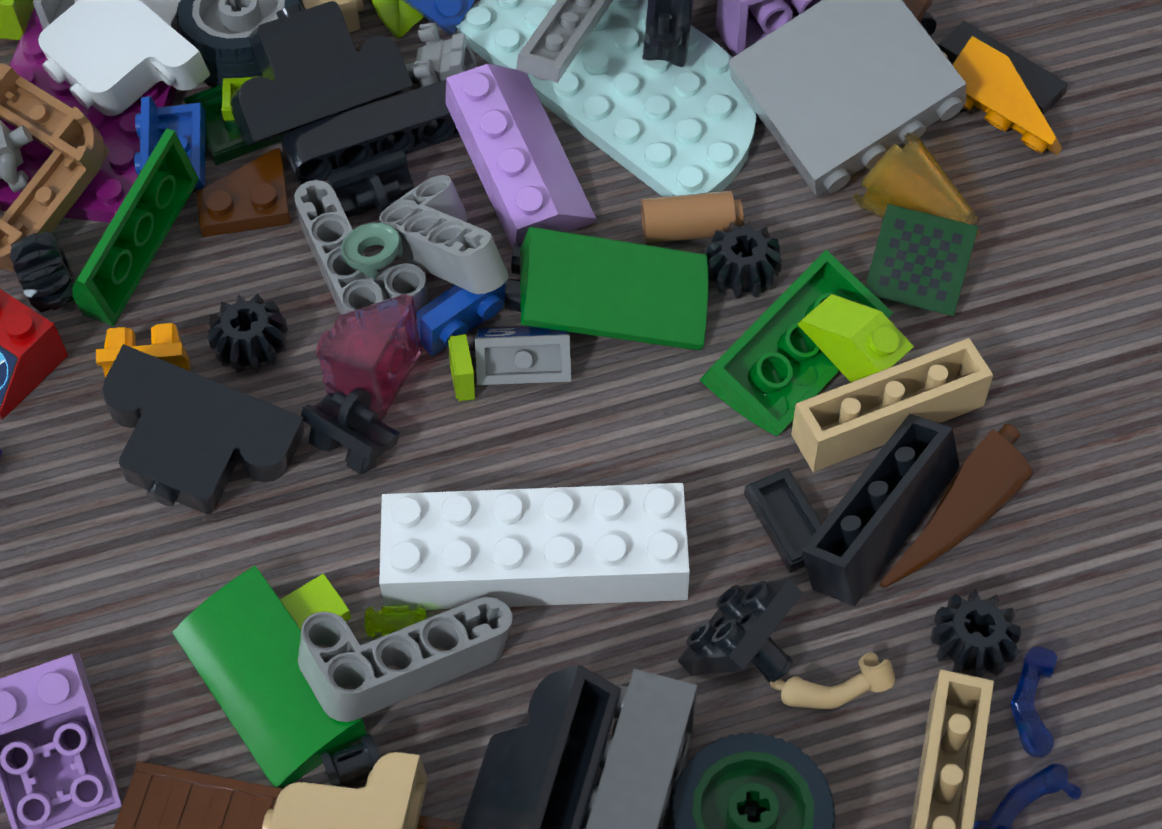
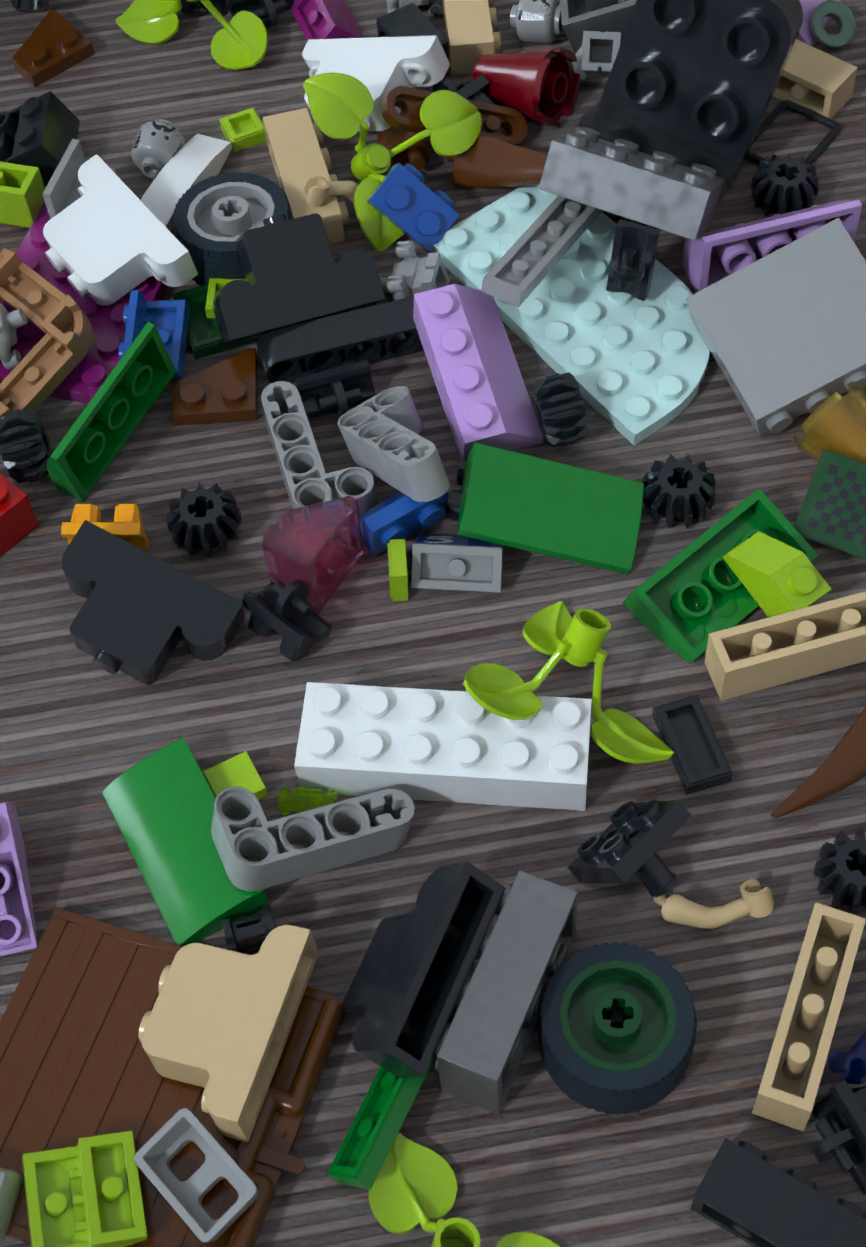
camera: 10 degrees right, 0 degrees up
(370, 235) = (322, 438): sand green piece -> none
(611, 186) = (560, 409): none -> black gear
(663, 426) = (578, 642): none -> lime plant
(689, 216) = (632, 444): medium nougat brick -> none
(881, 509) = (780, 742): black brick -> none

